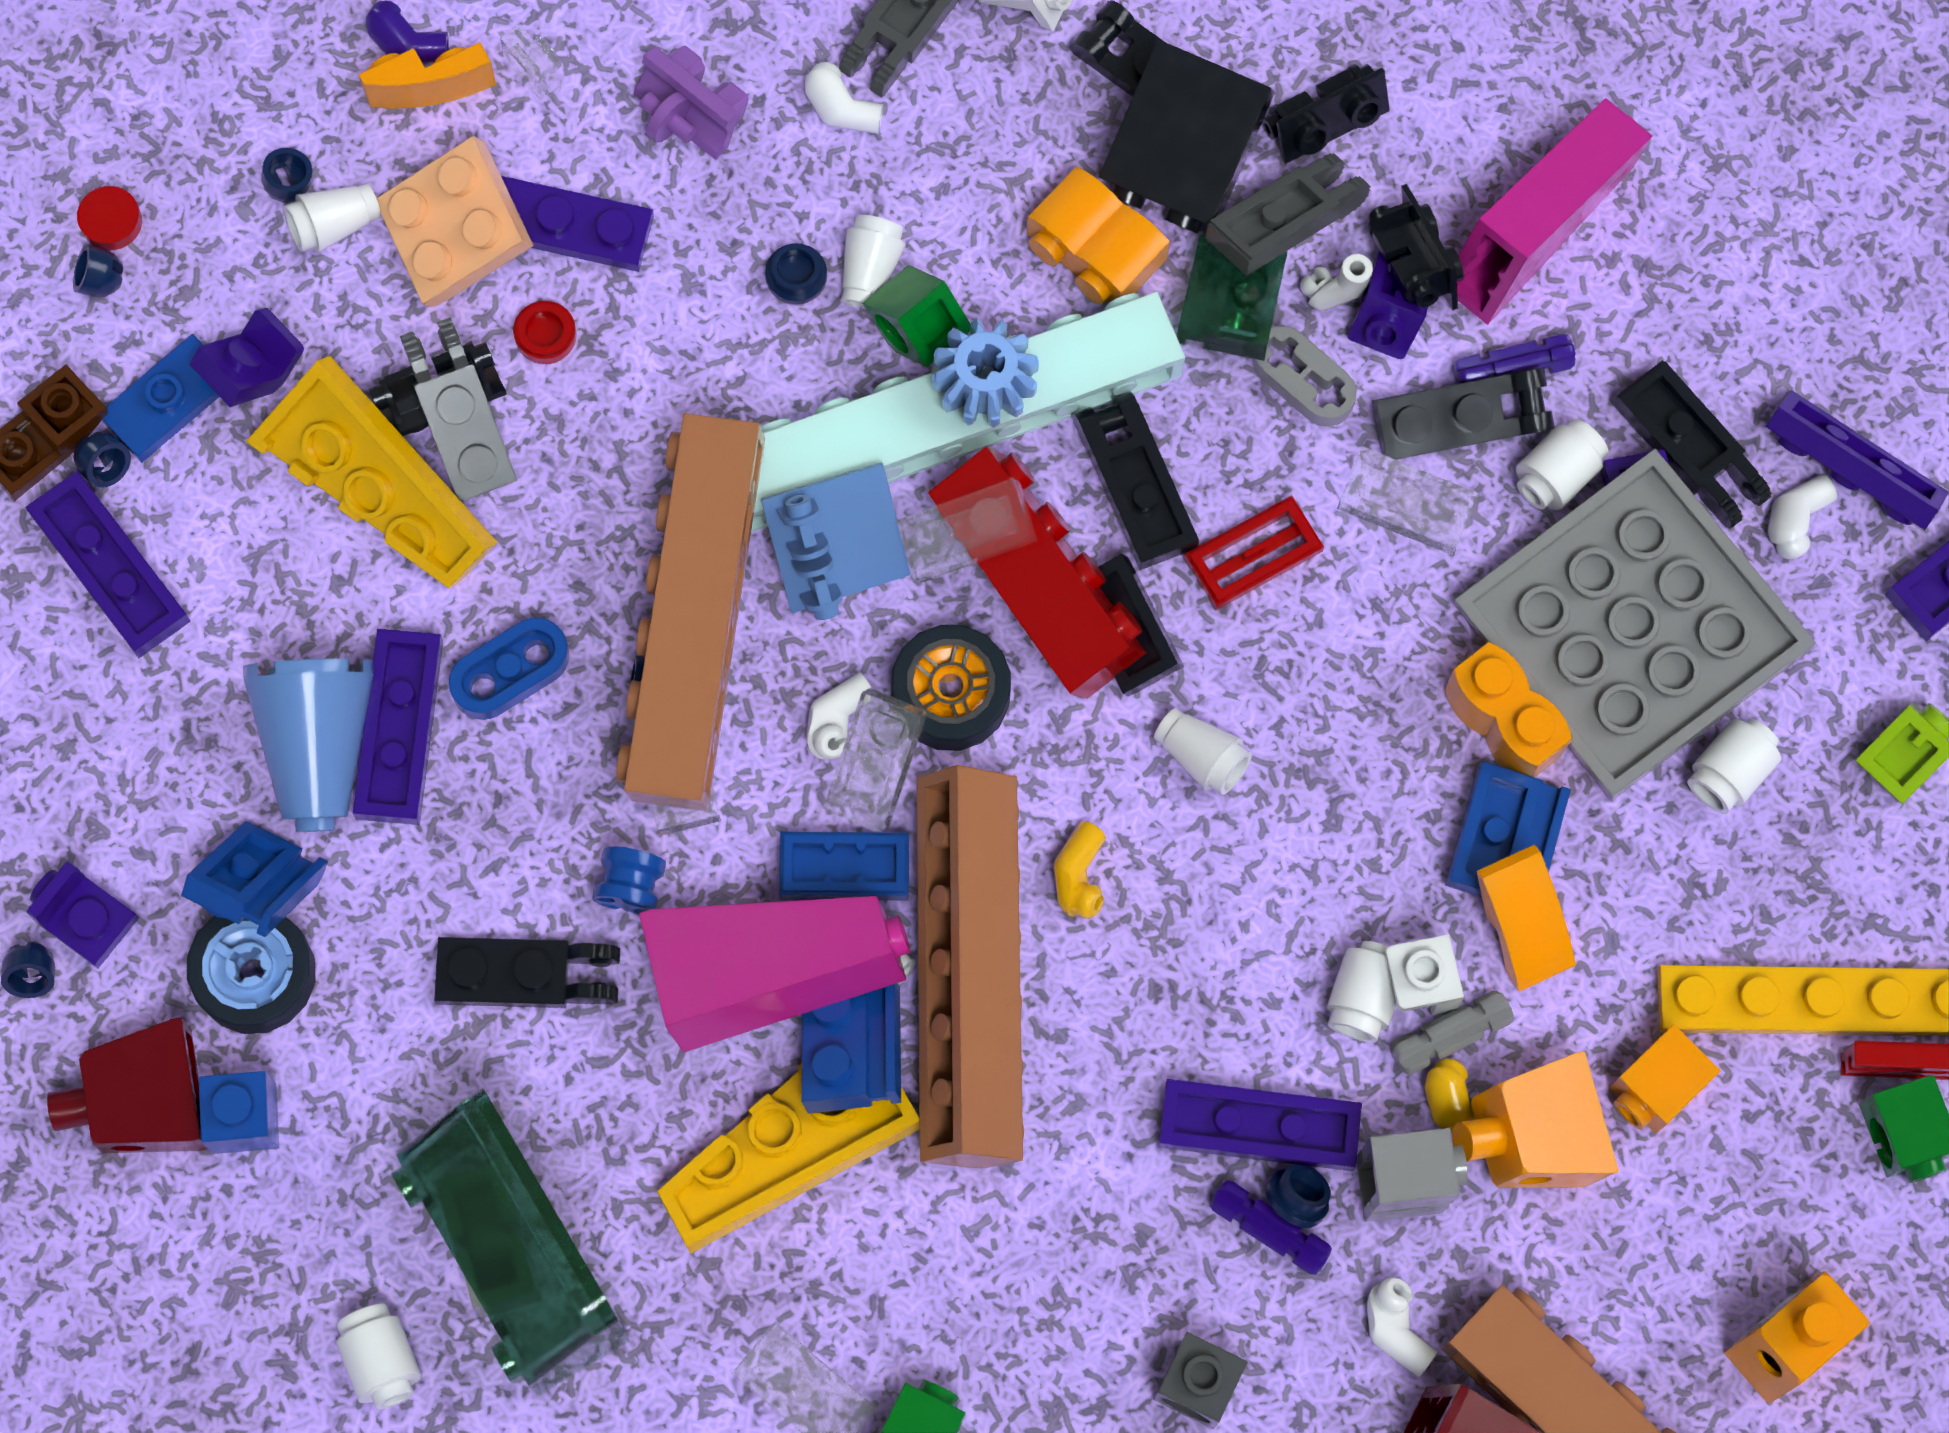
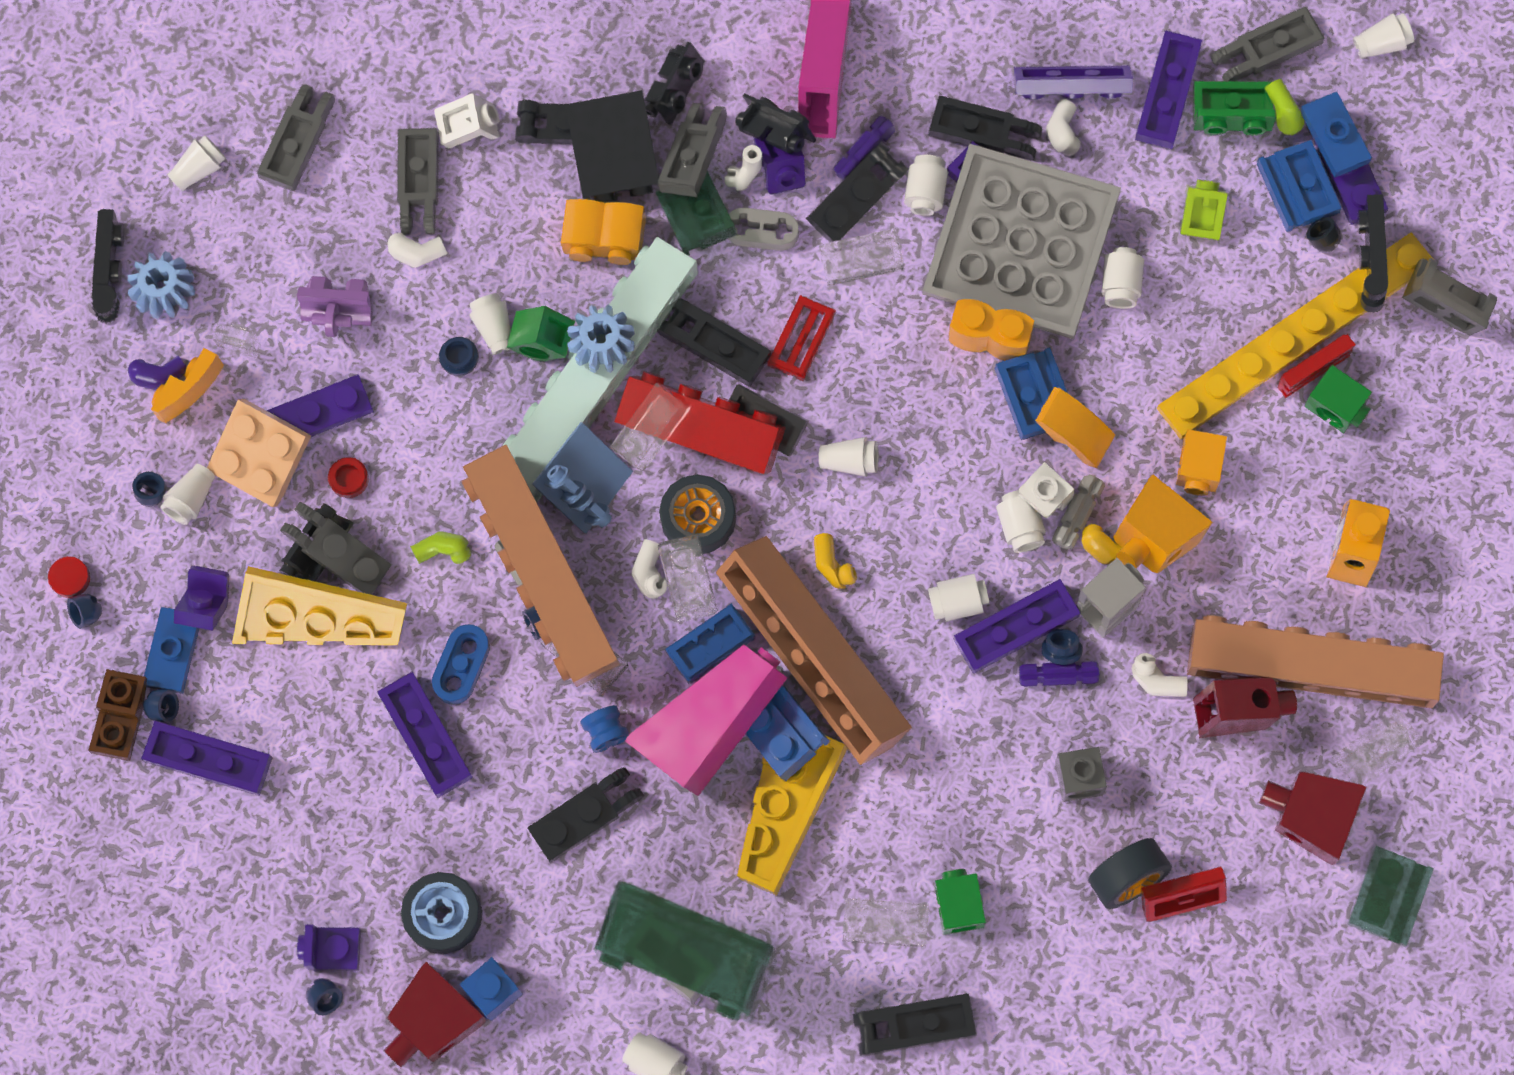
camera: 25 degrees left, 0 degrees up
(253, 878) = (409, 864): blue plate -> none
(311, 734) = (383, 769): medium blue cone -> none
(600, 498) = (444, 543): none -> lime arm
(1209, 1033) = (958, 598): none -> white brick

